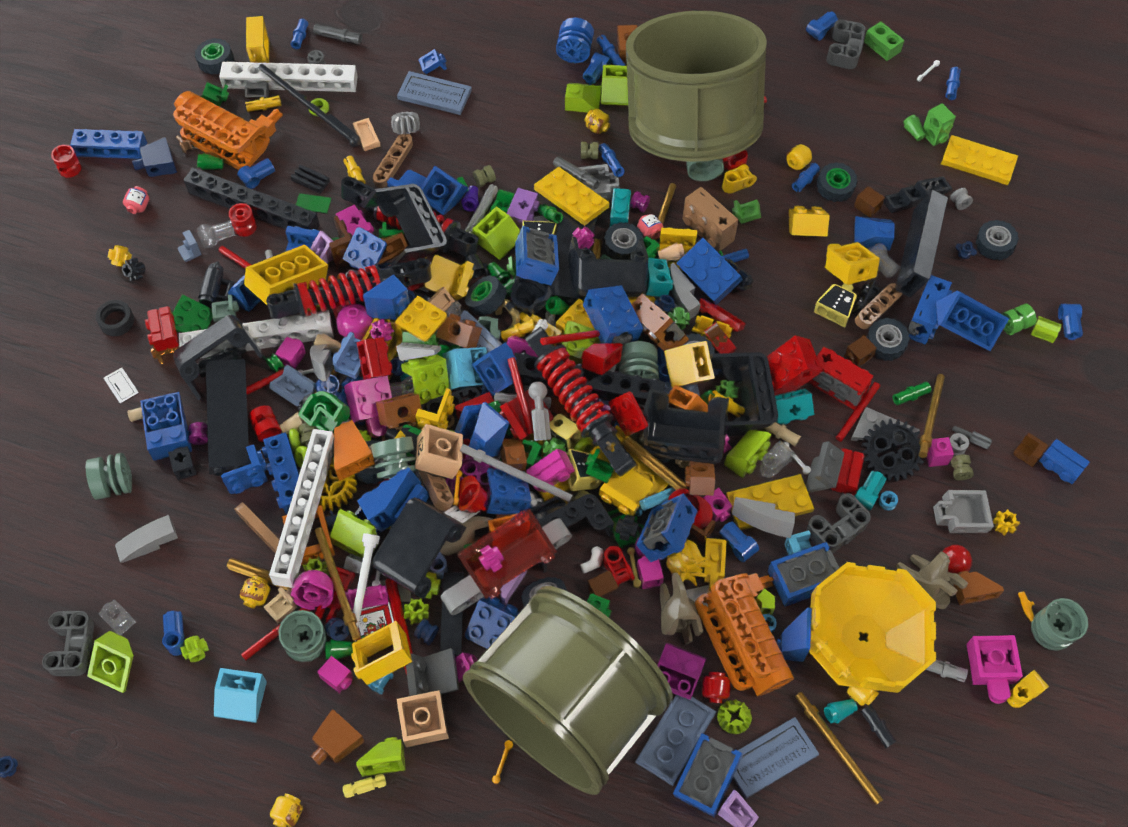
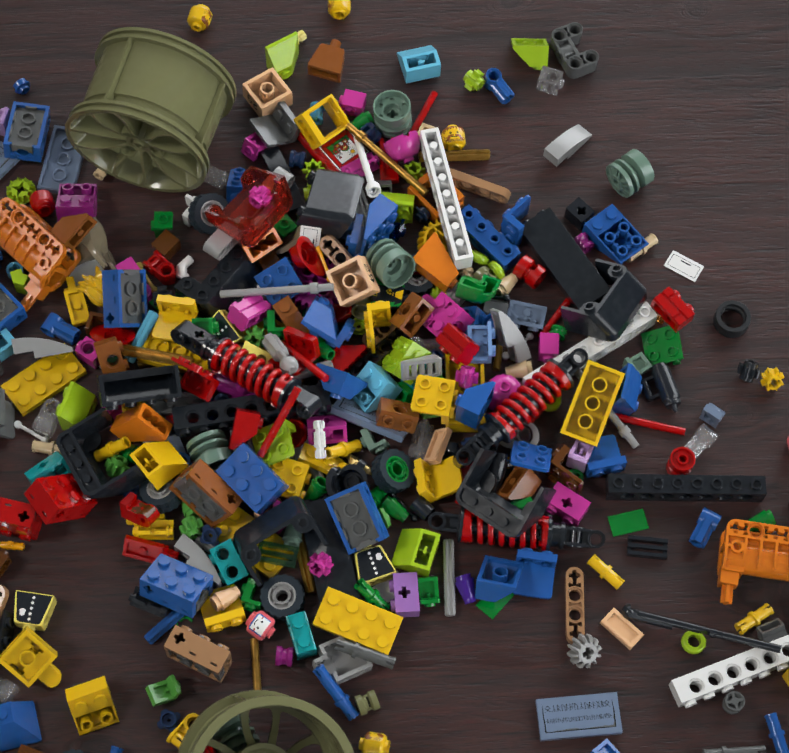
camera: 155 degrees right, 5 degrees up
(484, 176) = (465, 620): olive wheel -> none
(697, 613) = (73, 229): none -> dark orange slope
(749, 189) = (165, 715): none -> dark blue plate

